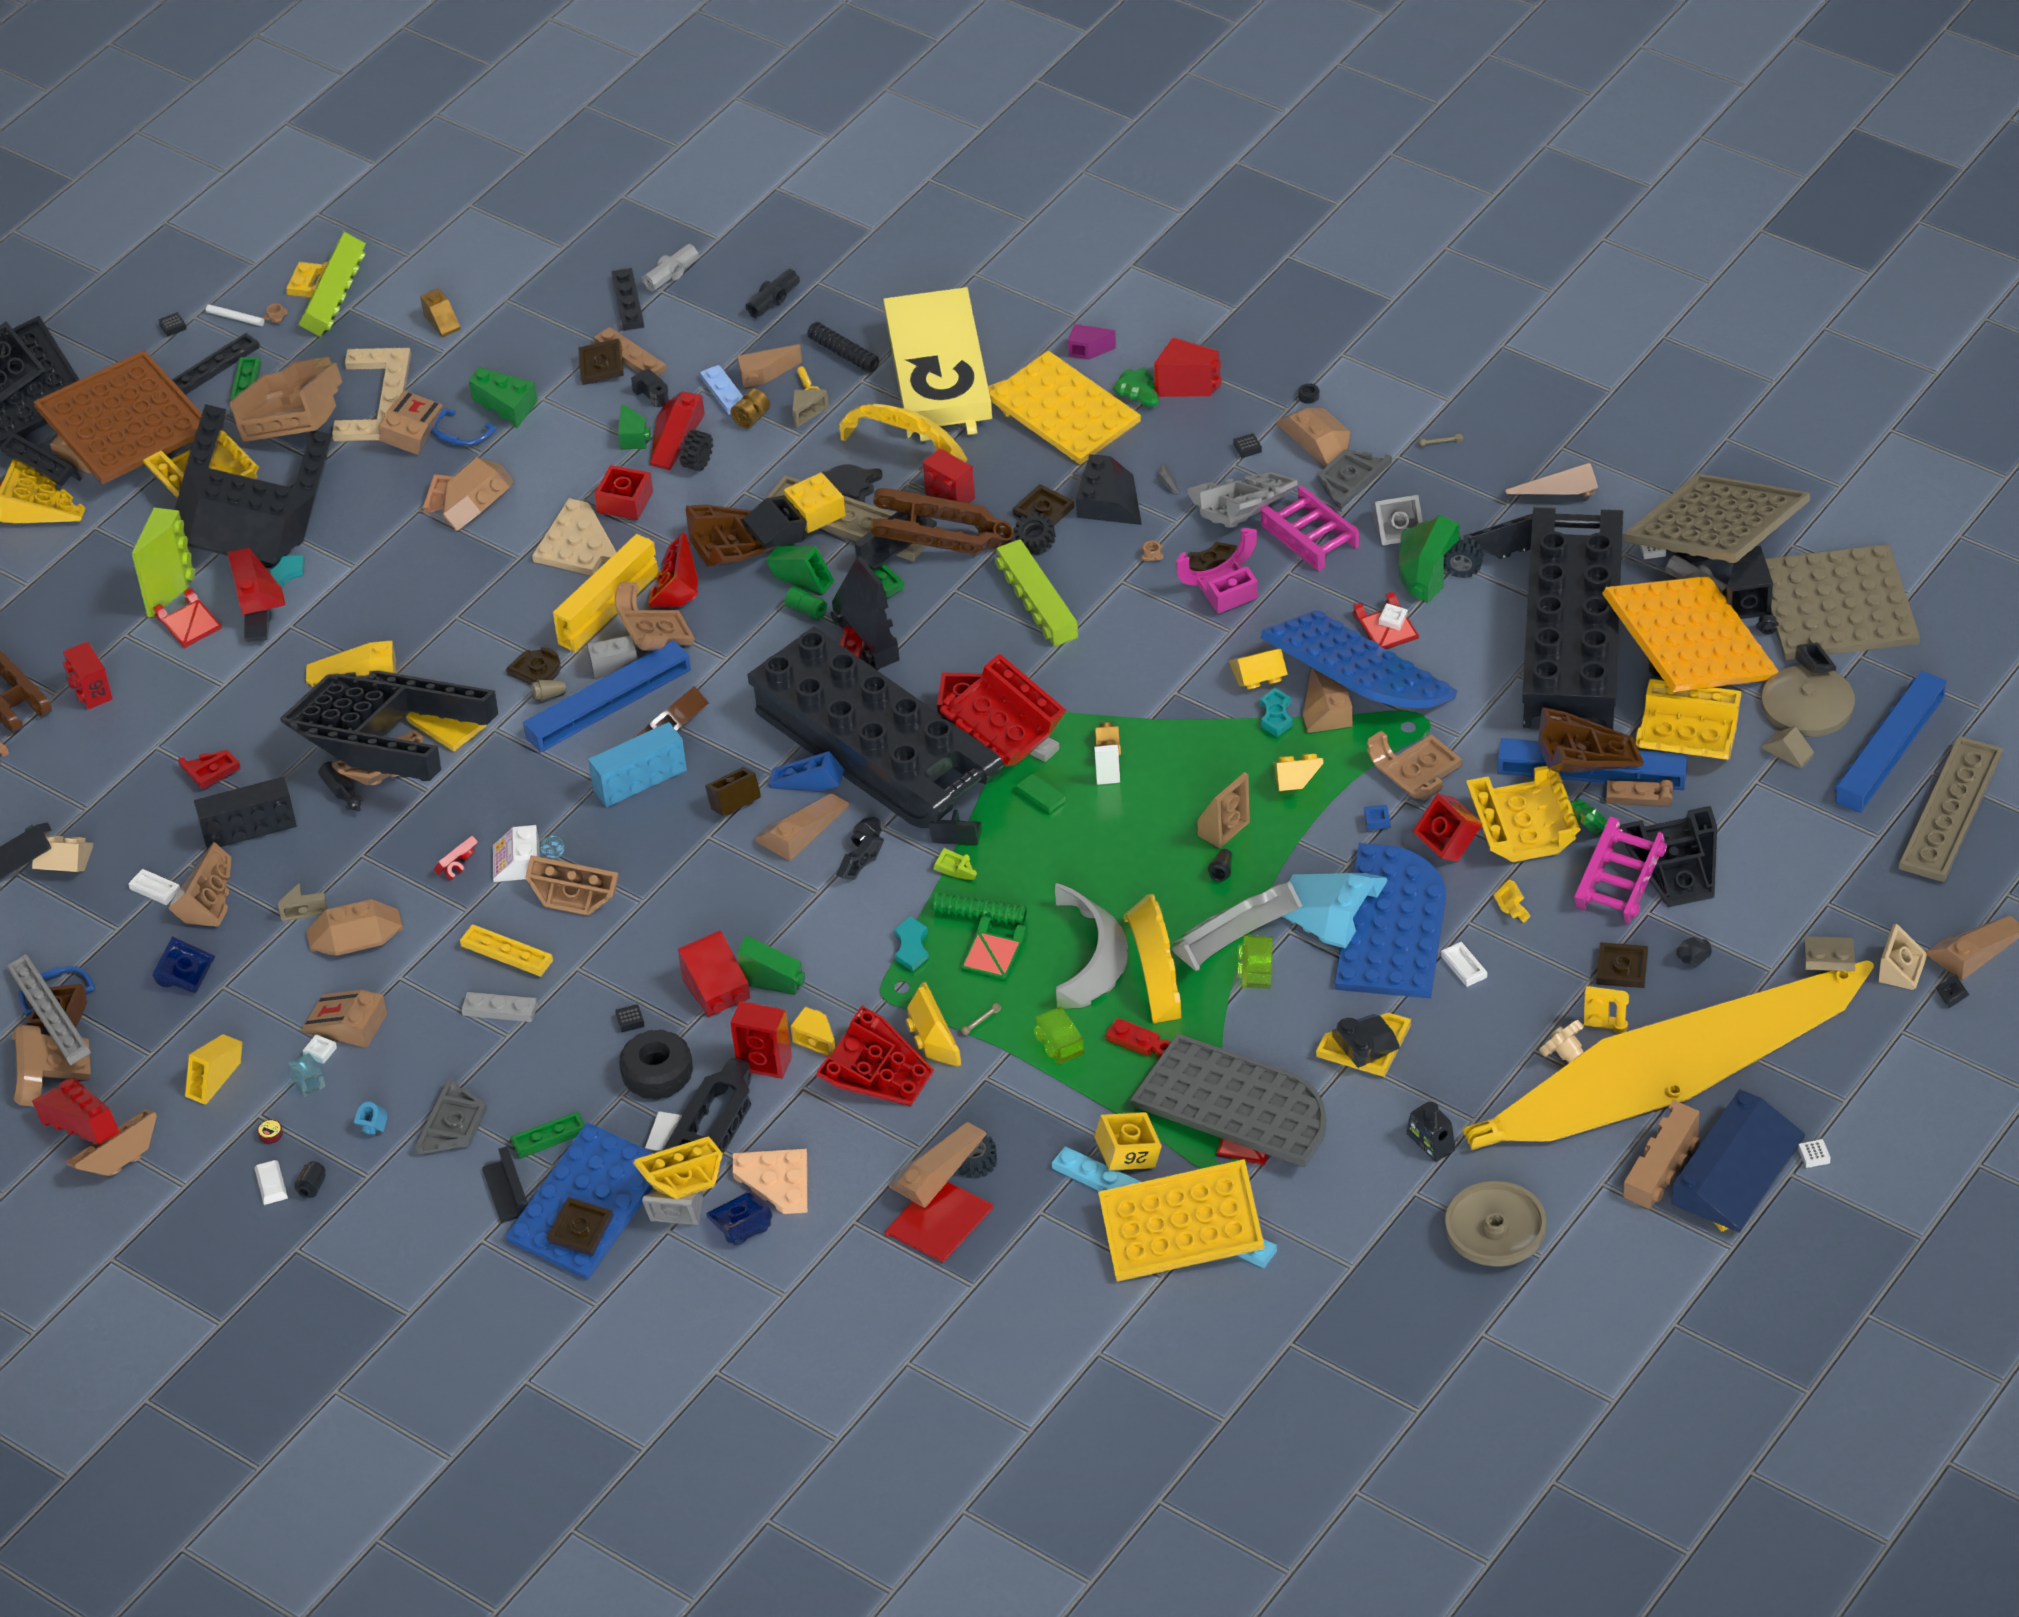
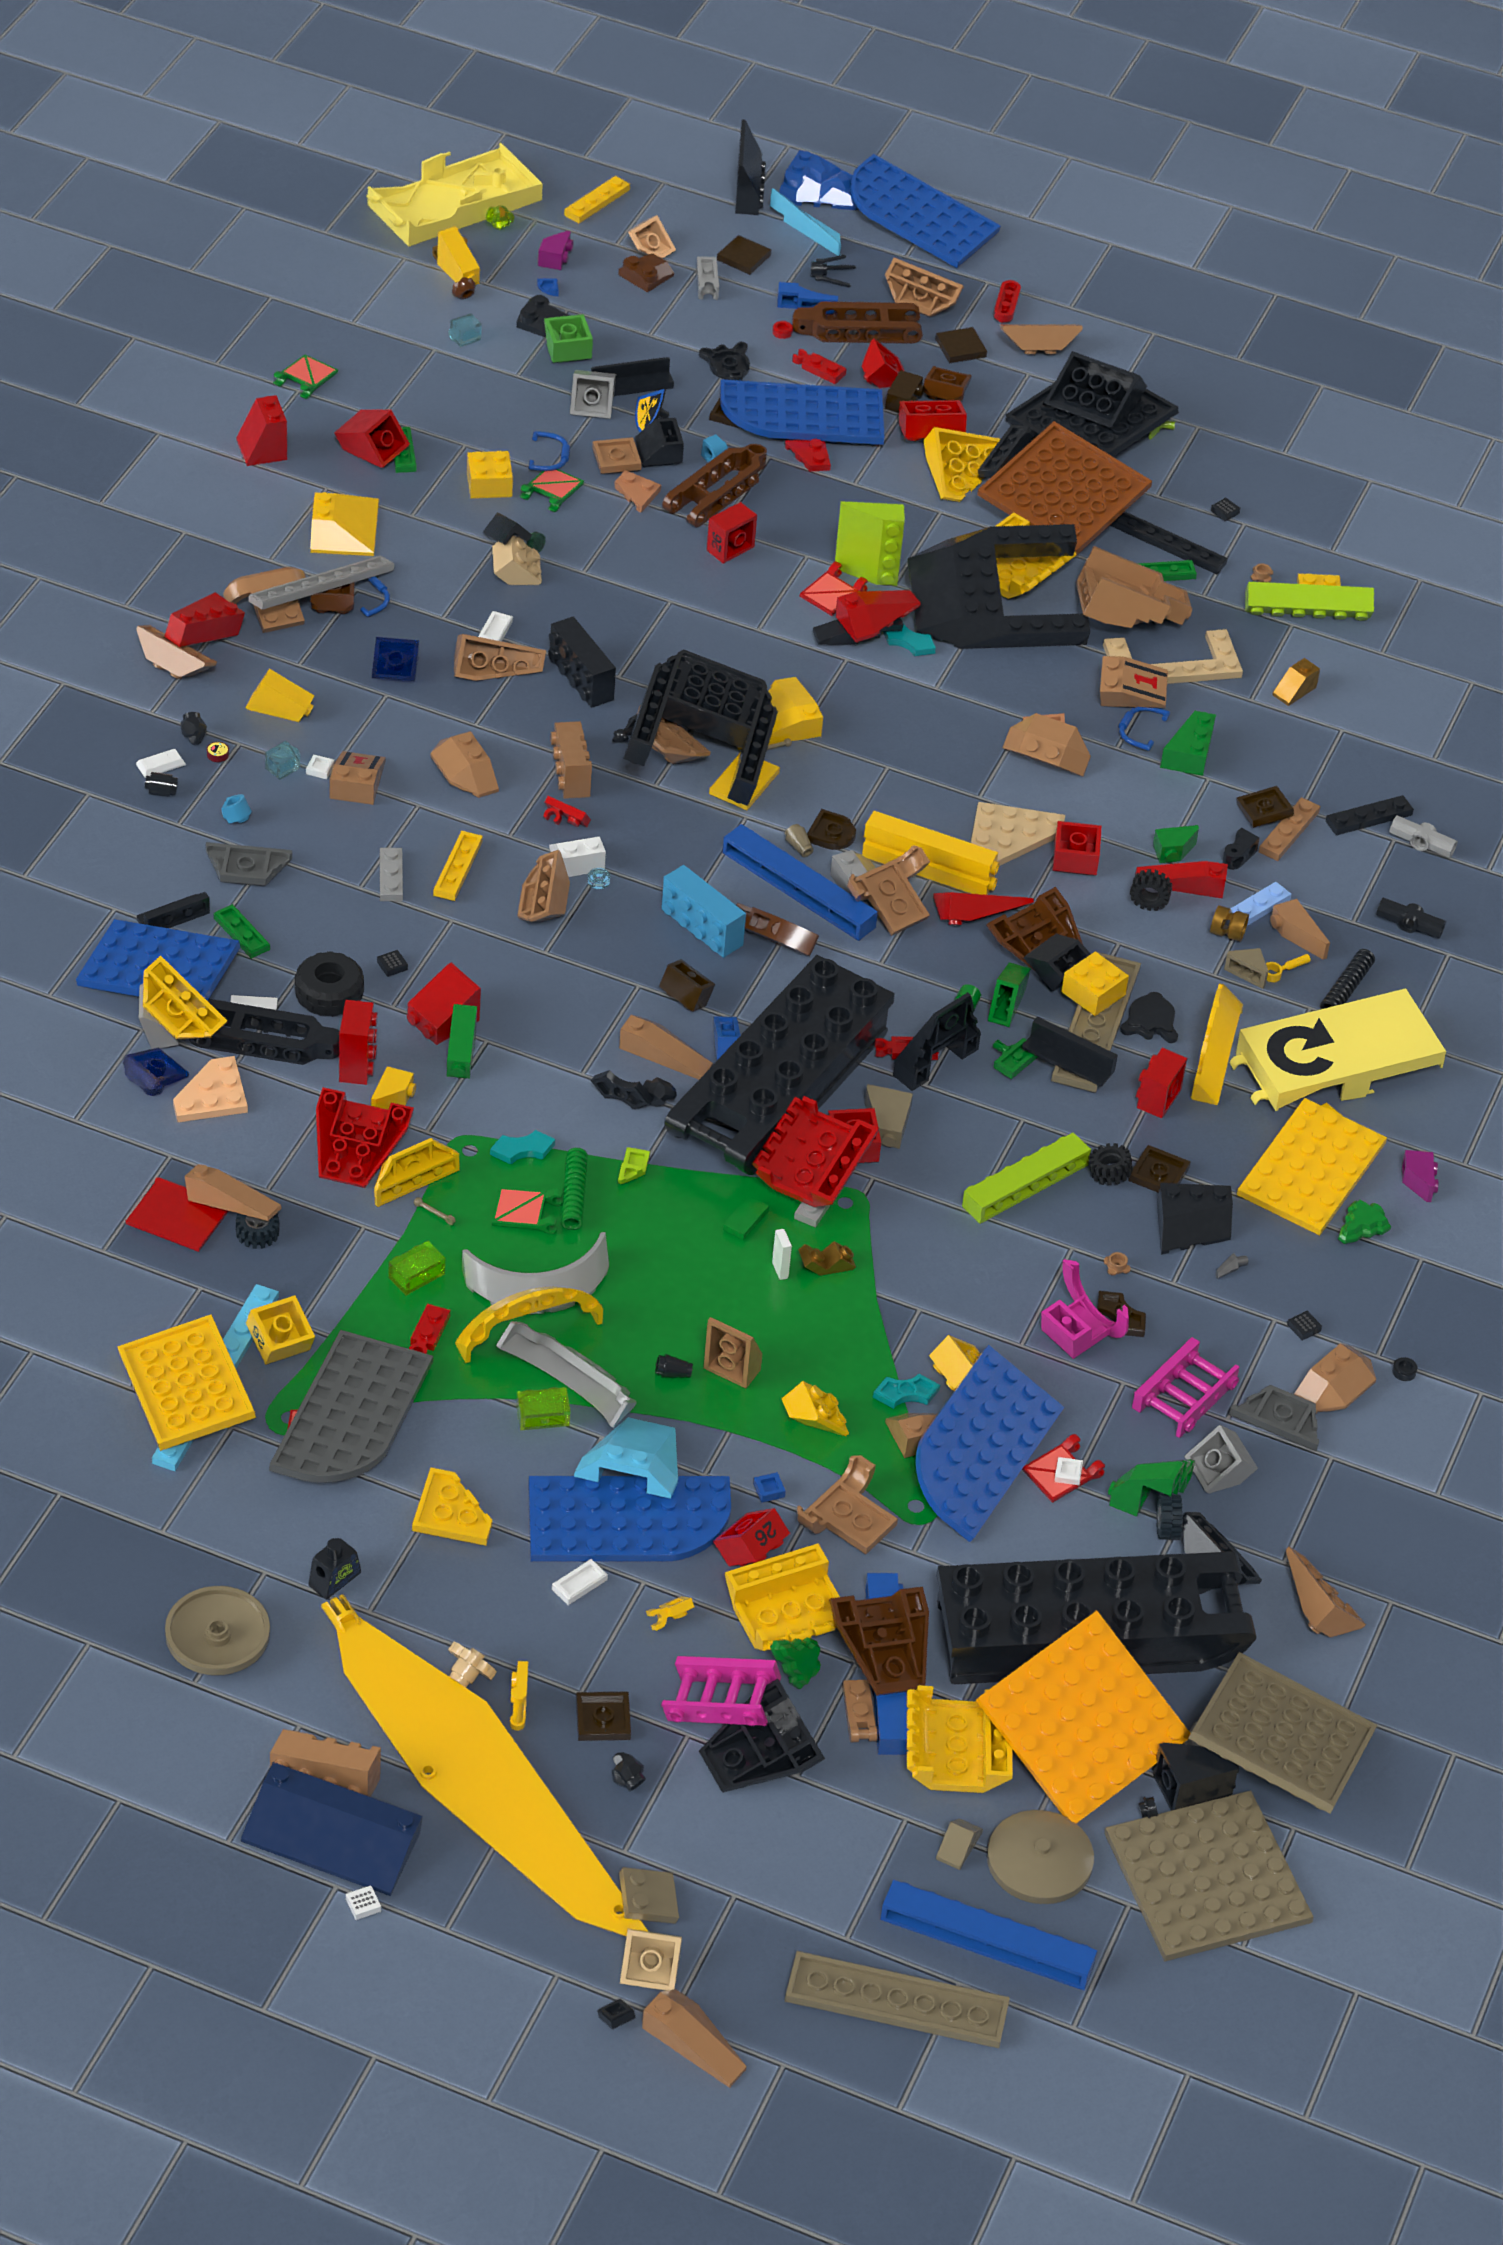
camera: 70 degrees right, 0 degrees up
(210, 767) = (645, 635): red wing -> none
(233, 1144) = (193, 727): none -> black rock
(235, 315) = (1252, 548): white bar -> none
(299, 906) = (488, 721): dark tan slope -> none
(382, 840) = (572, 759): none -> medium nougat wedge
(580, 1226) = (119, 958): dark brown tile -> none
(925, 672) = (892, 1112): none -> dark tan slope
(955, 831) = (678, 1160): black panel -> none
(989, 530) = (1098, 1131): reddish brown piece -> none
(1187, 370) = (1388, 1250): red slope -> none
(1238, 500) = (1212, 1321): light grey wedge -> none
(1365, 1038) = (446, 1500): black slope -> none
(1458, 438) = (1375, 1506): dark tan hinge -> none
(1814, 658) = (1105, 1840): black slope -> none

